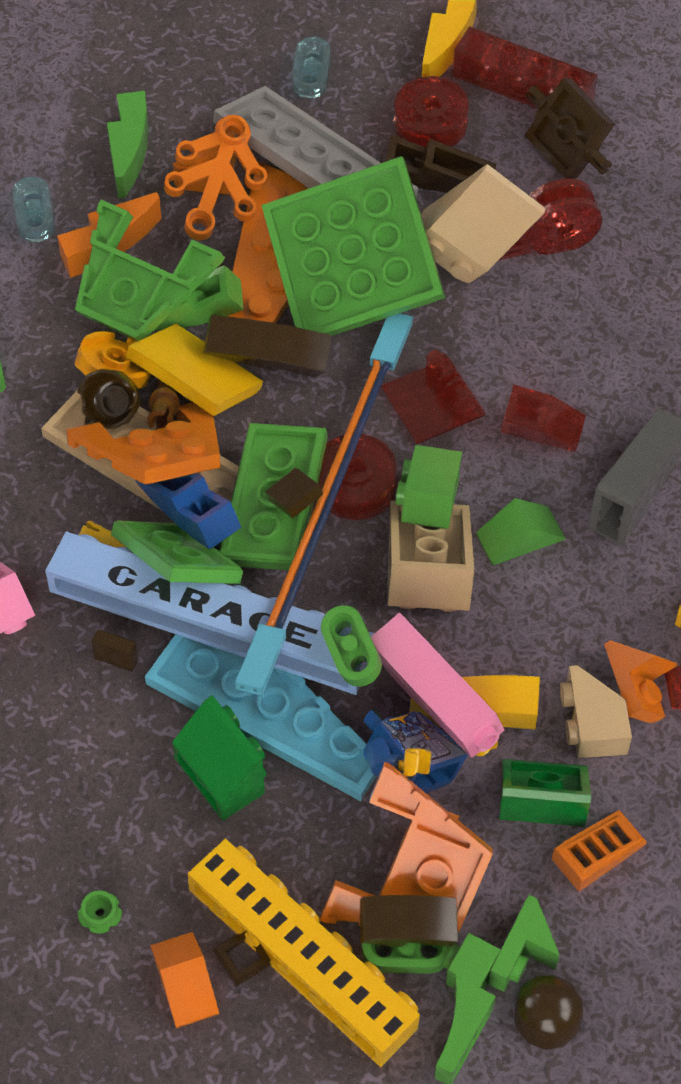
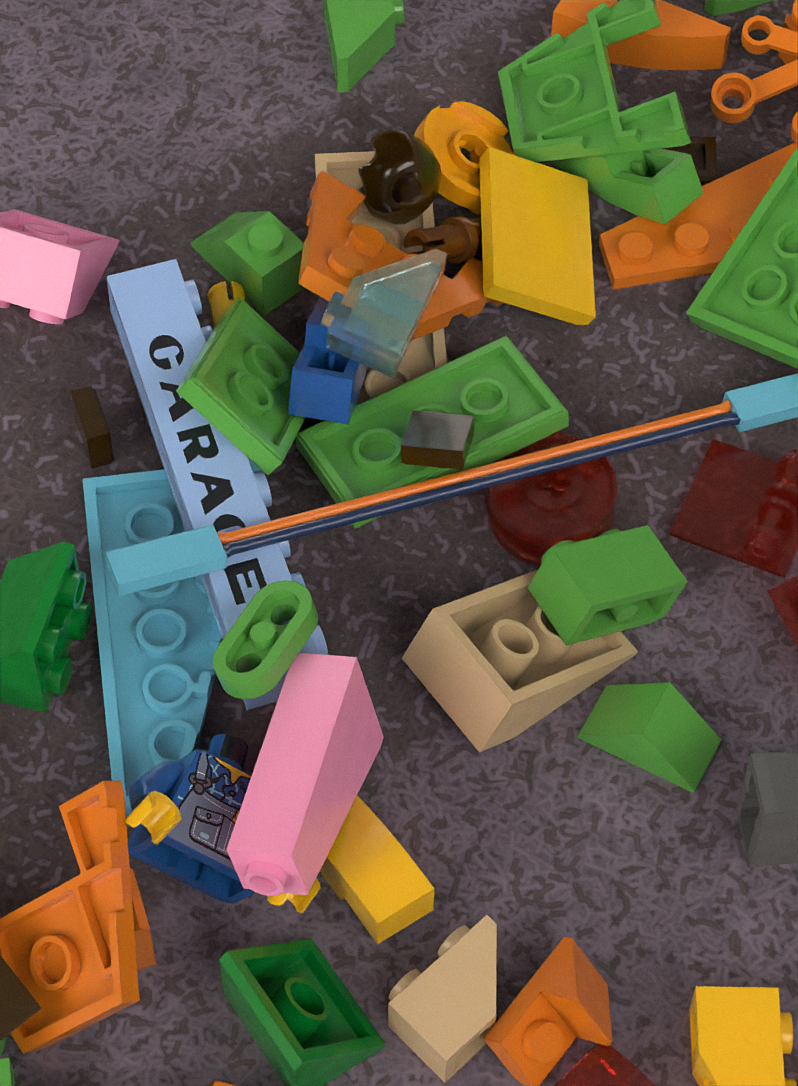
camera: 50 degrees right, 0 degrees up
(75, 500) = (257, 254): none -> bright green slope
(211, 456) = (383, 311): none -> clear light blue slope
(267, 345) = (637, 280): dark brown slope -> none

